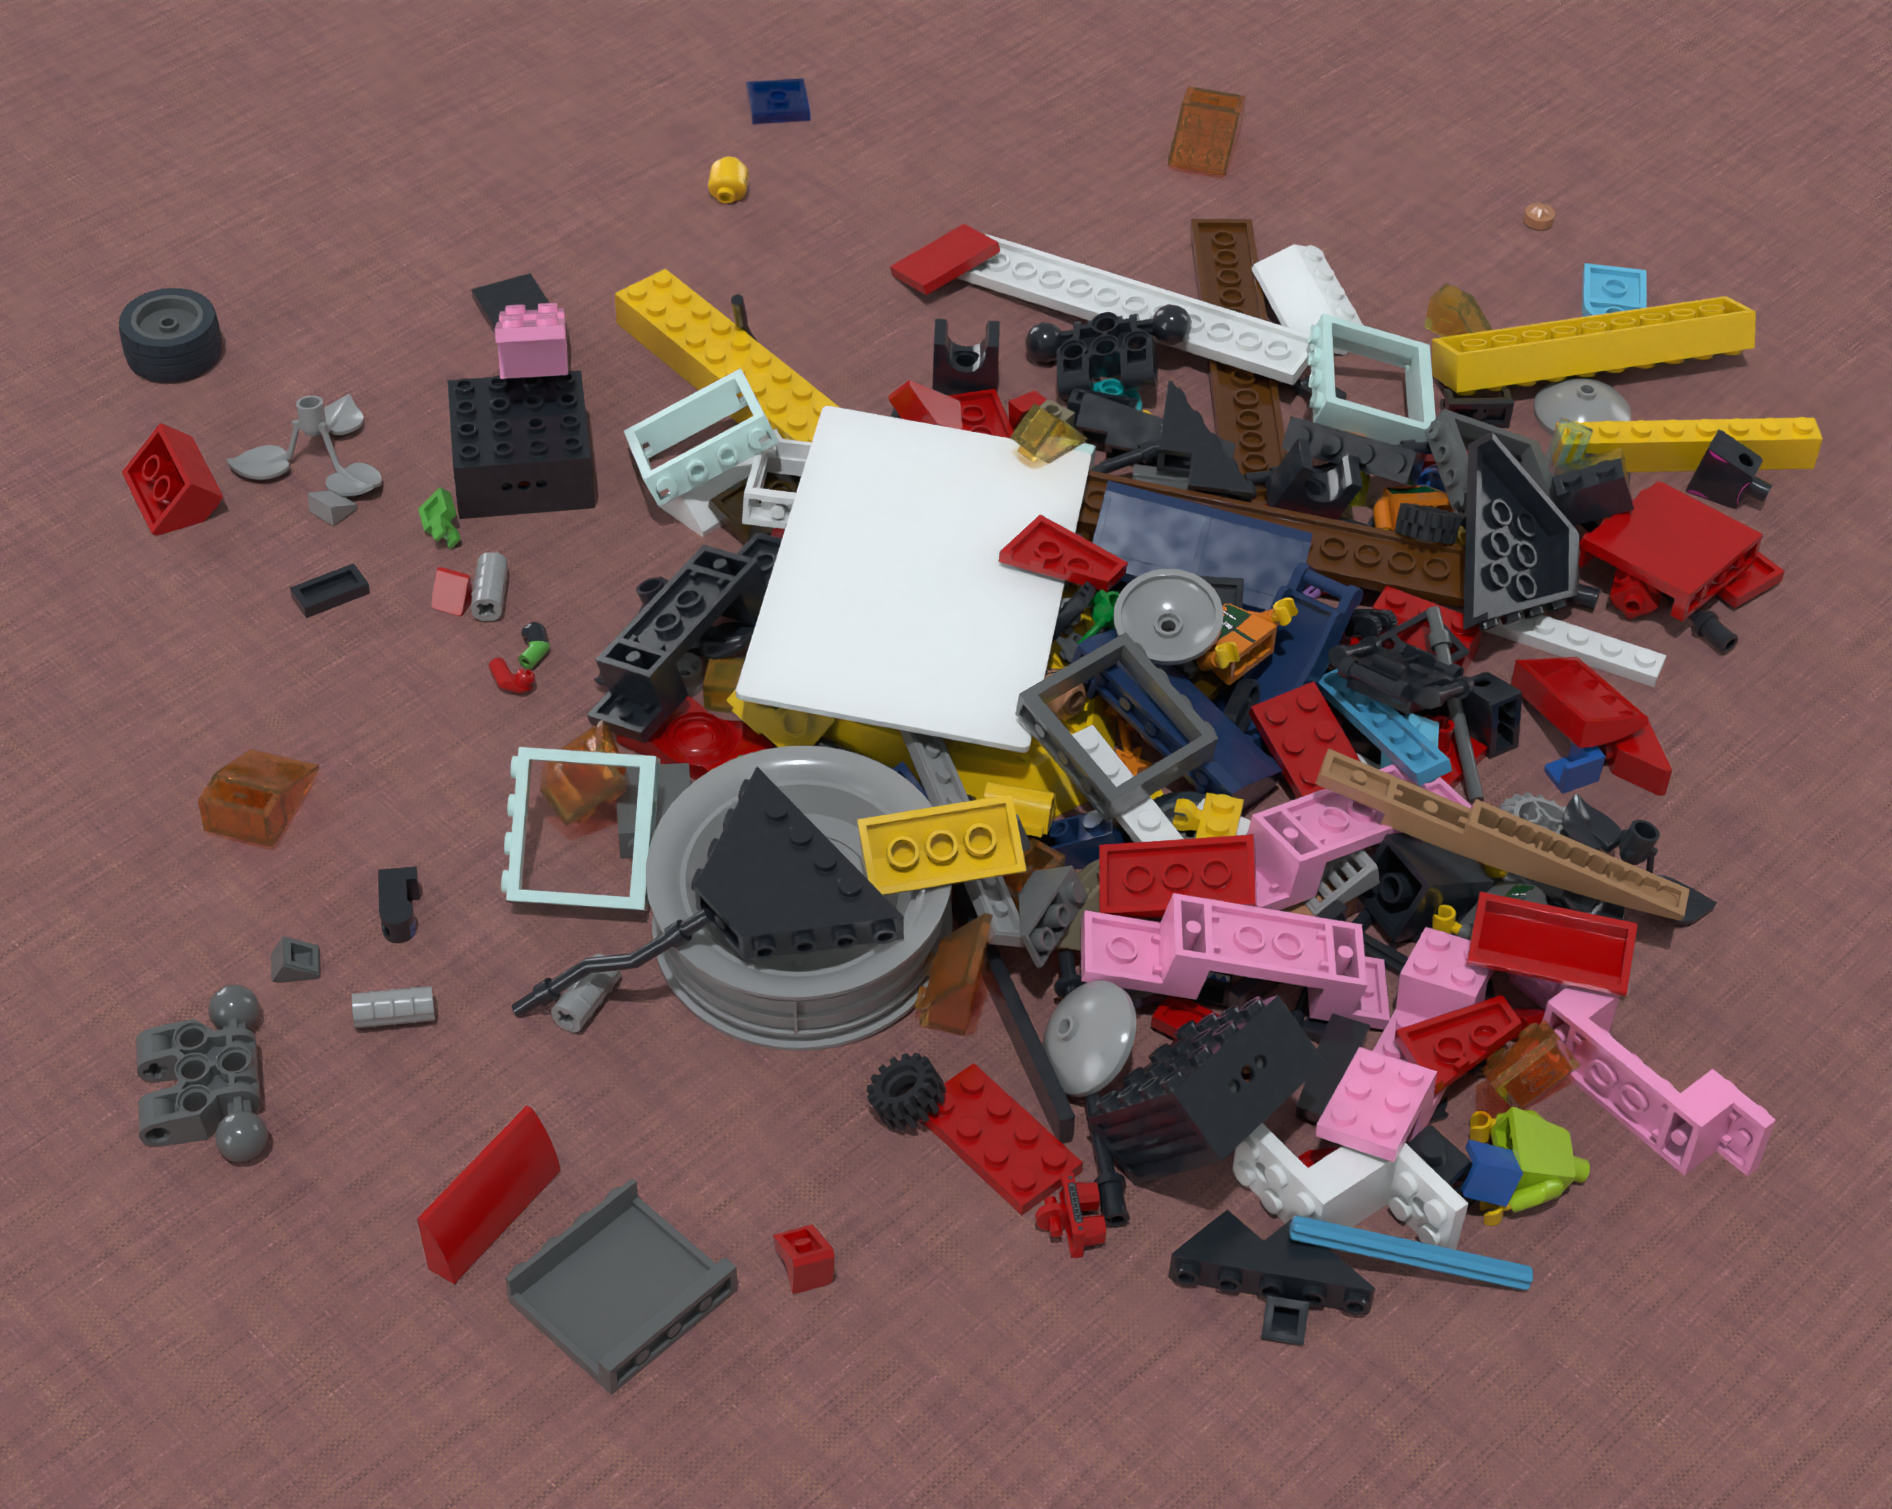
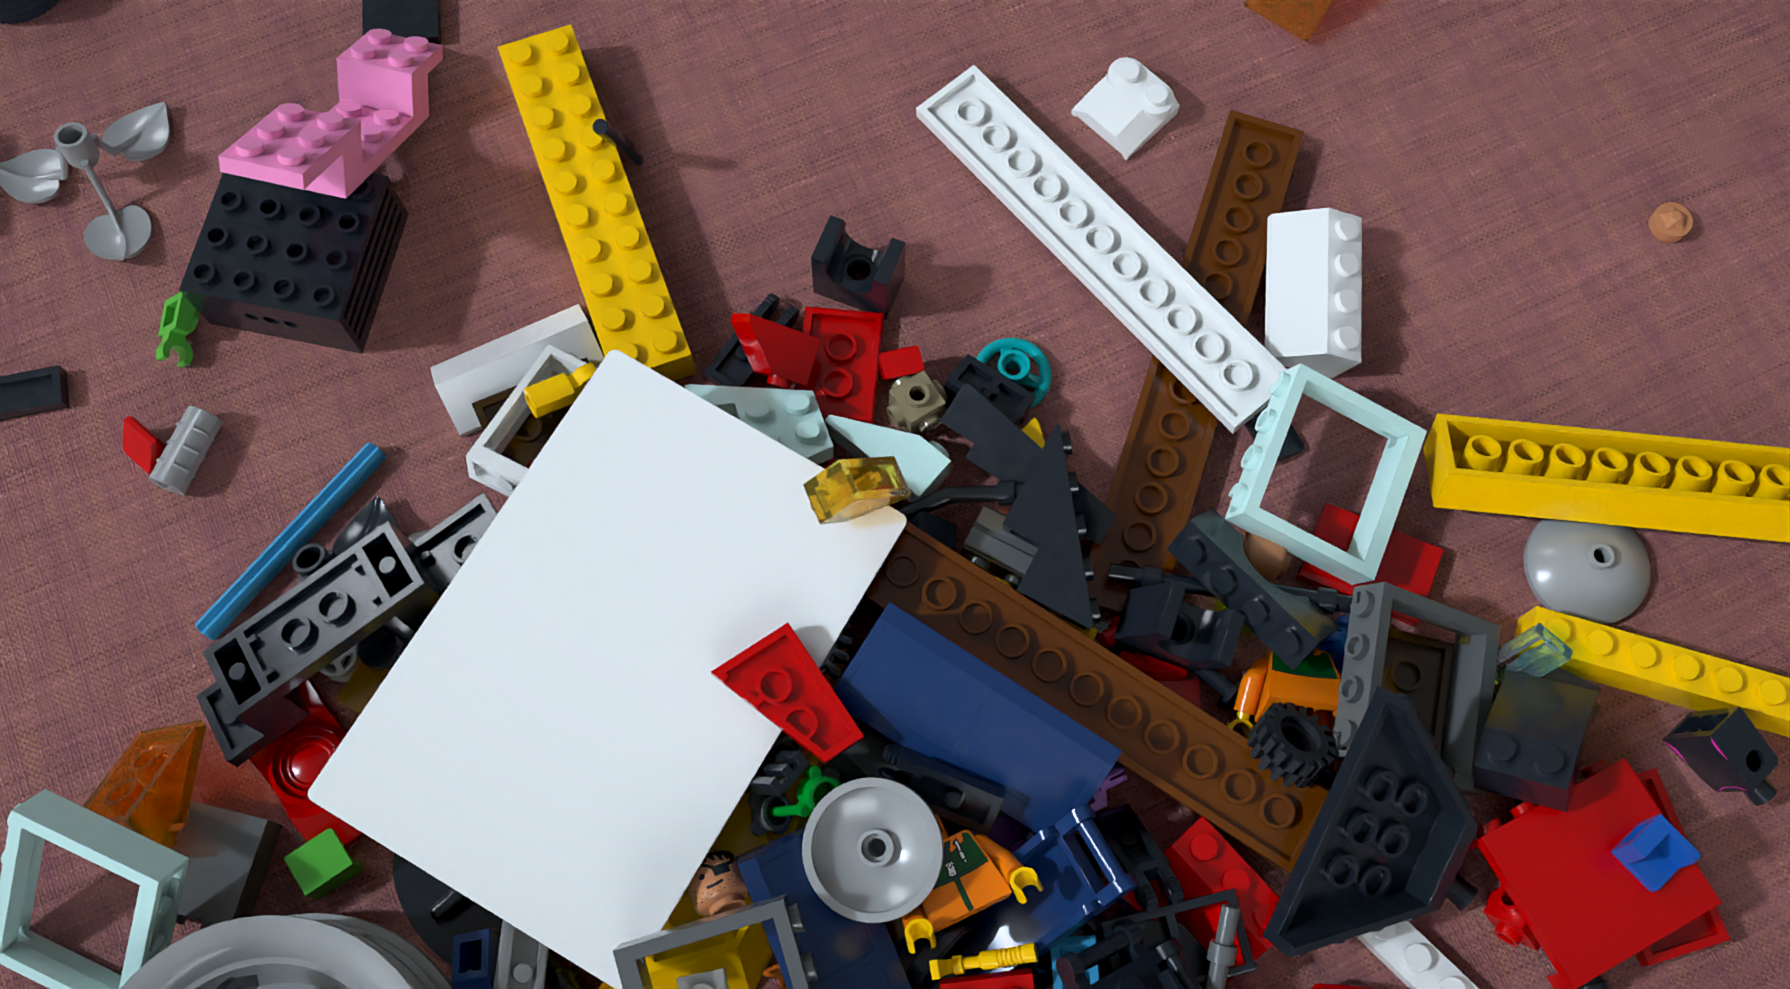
camera: 20 degrees right, 25 degrees up
(330, 506) = (76, 265): light grey slope -> none
(520, 682) = (150, 597): red arm -> none
(538, 644) = (205, 552): arm -> none
(603, 622) = (289, 541): none -> dark azure axle
(690, 417) = (542, 261): light aqua window -> none
(789, 450) = (558, 390): none -> yellow bar
(945, 259) = (908, 92): red tile -> none
(1108, 348) = (1011, 285): black connector -> none
(1113, 235) = (1127, 106): none -> white slope
(1276, 685) = (985, 960): none -> yellow piece
(1454, 313) = (1493, 373): clear yellow slope -> none
(1487, 410) = (1454, 529): black hinge -> none
(1612, 289) = (1711, 382): medium azure tile -> none
(1703, 510) = (1655, 852): none -> blue panel

